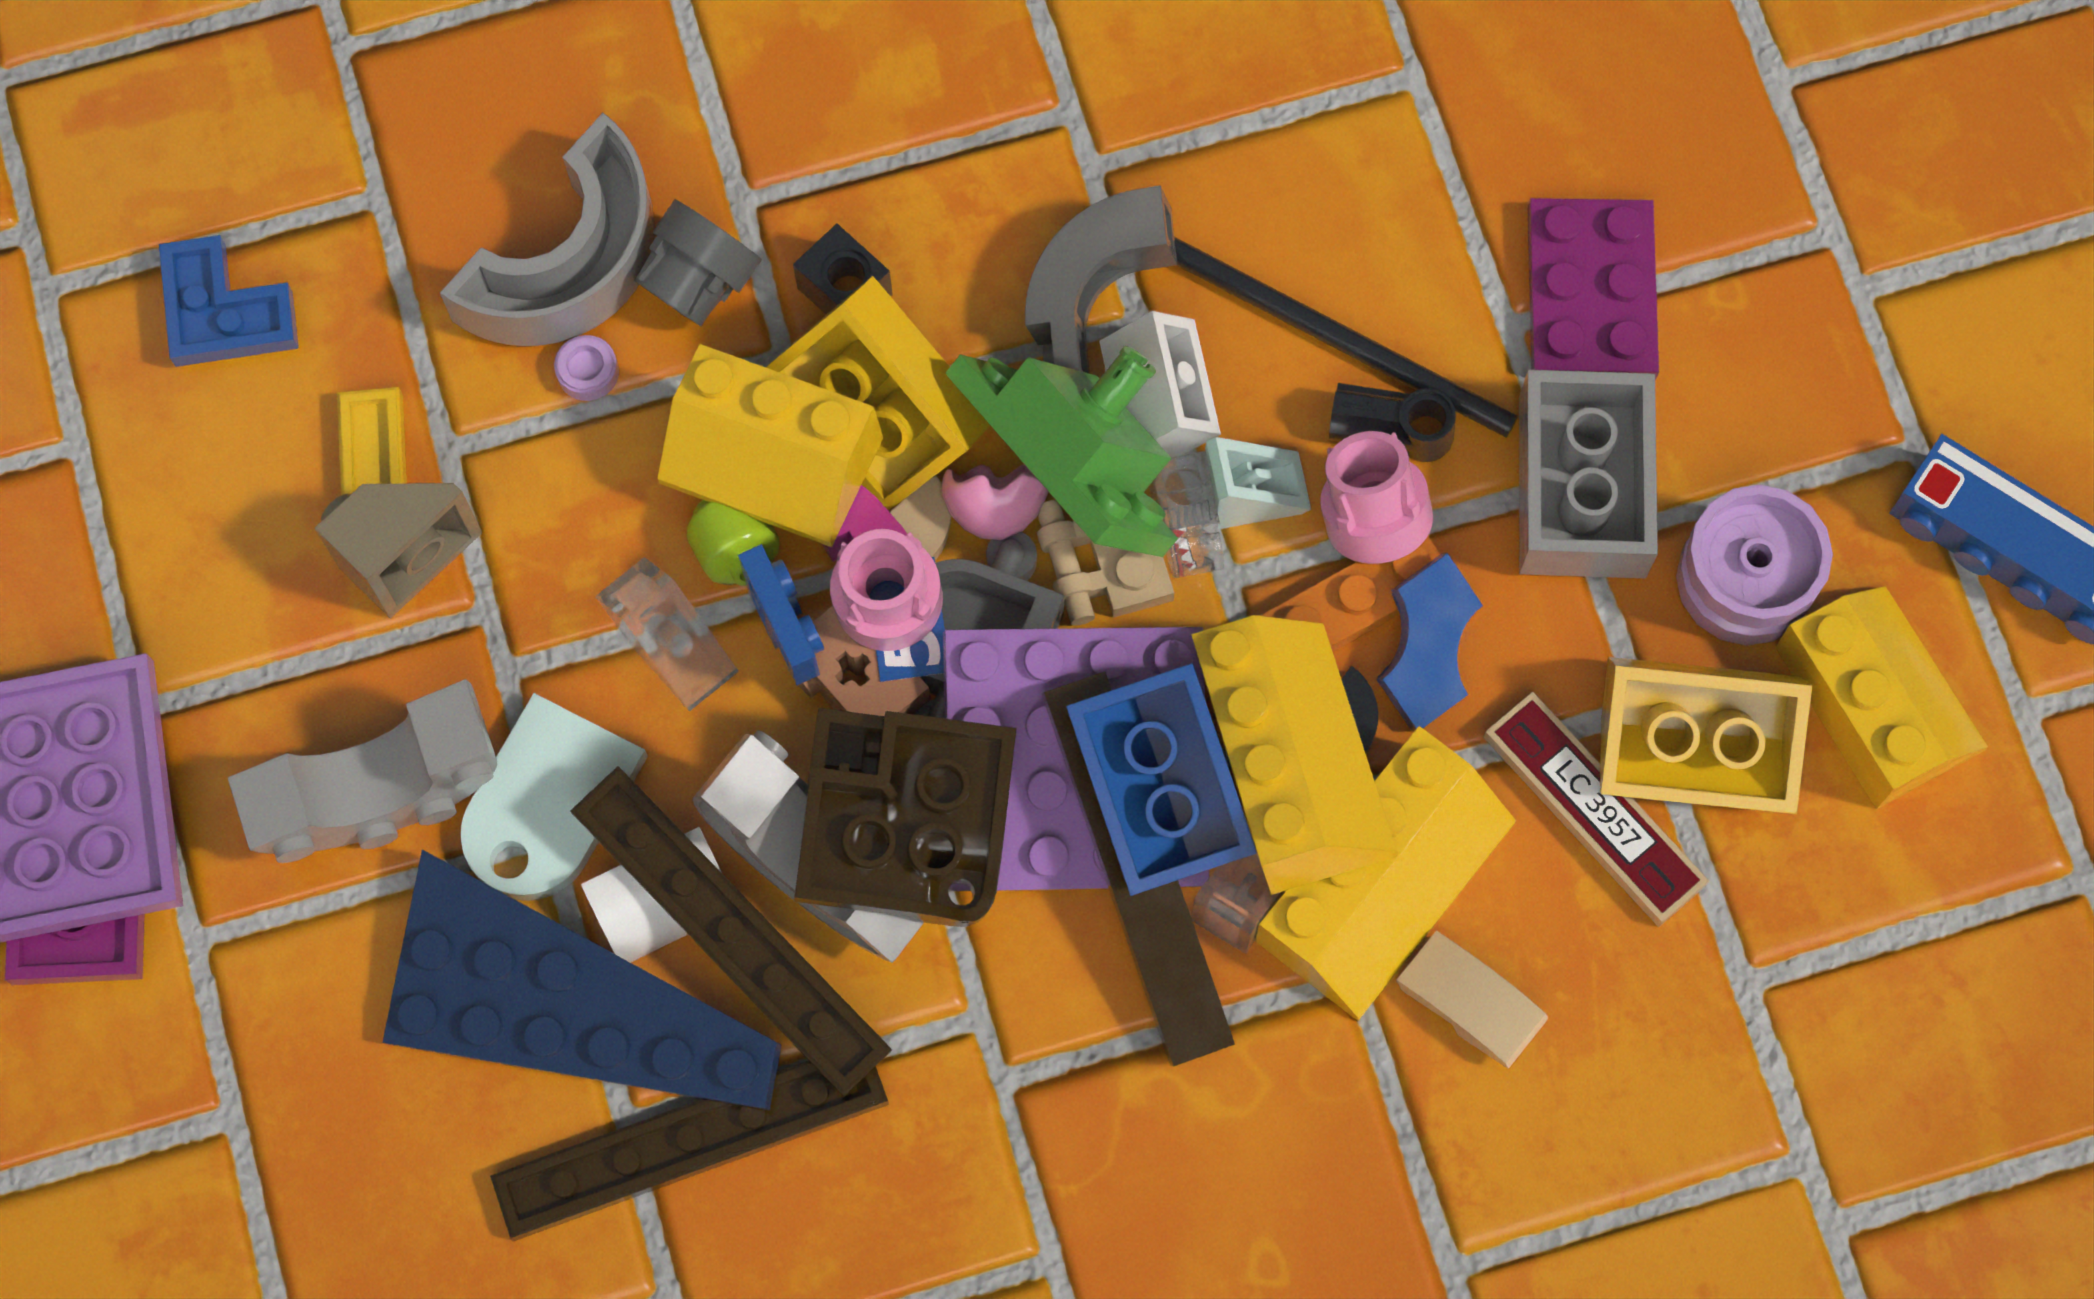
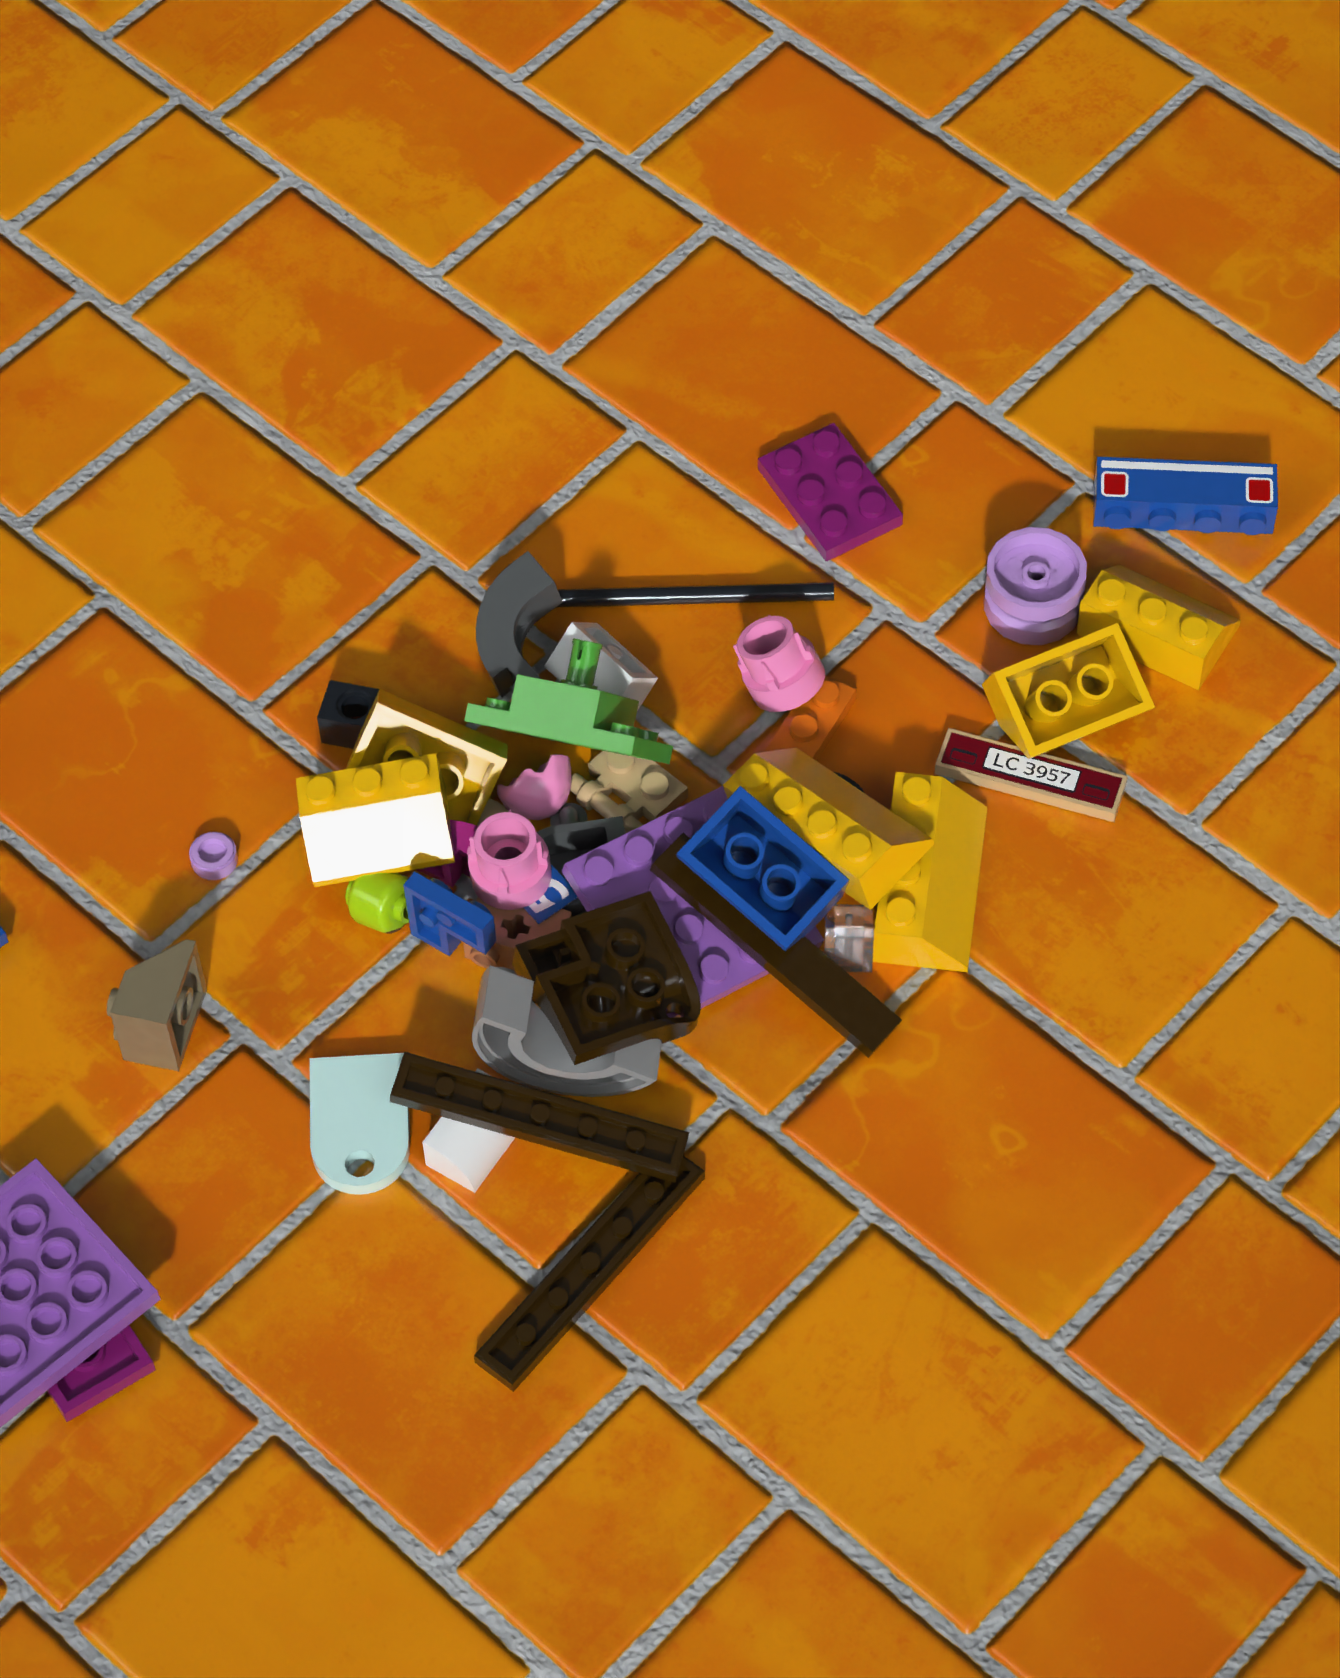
camera: 30 degrees left, 15 degrees down
(371, 438) = (92, 970): yellow tile -> none
(371, 788) = (253, 1152): light grey brick -> none
(528, 993) = (428, 1231): dark blue wing -> none
(583, 277) = (179, 803): light grey brick -> none
(667, 632) = (374, 975): clear slope -> none
(694, 263) = (250, 750): dark grey piece -> none
(1191, 514) = (688, 748): clear leg -> none
(1255, 482) = (691, 702): light aqua slope -> none
(1385, 411) = (776, 598): black piece -> none
(1433, 613) = (859, 714): blue tile -> none
(1473, 999) = (1036, 915): tan slope -> none
(1587, 474) = (900, 587): light grey brick -> none

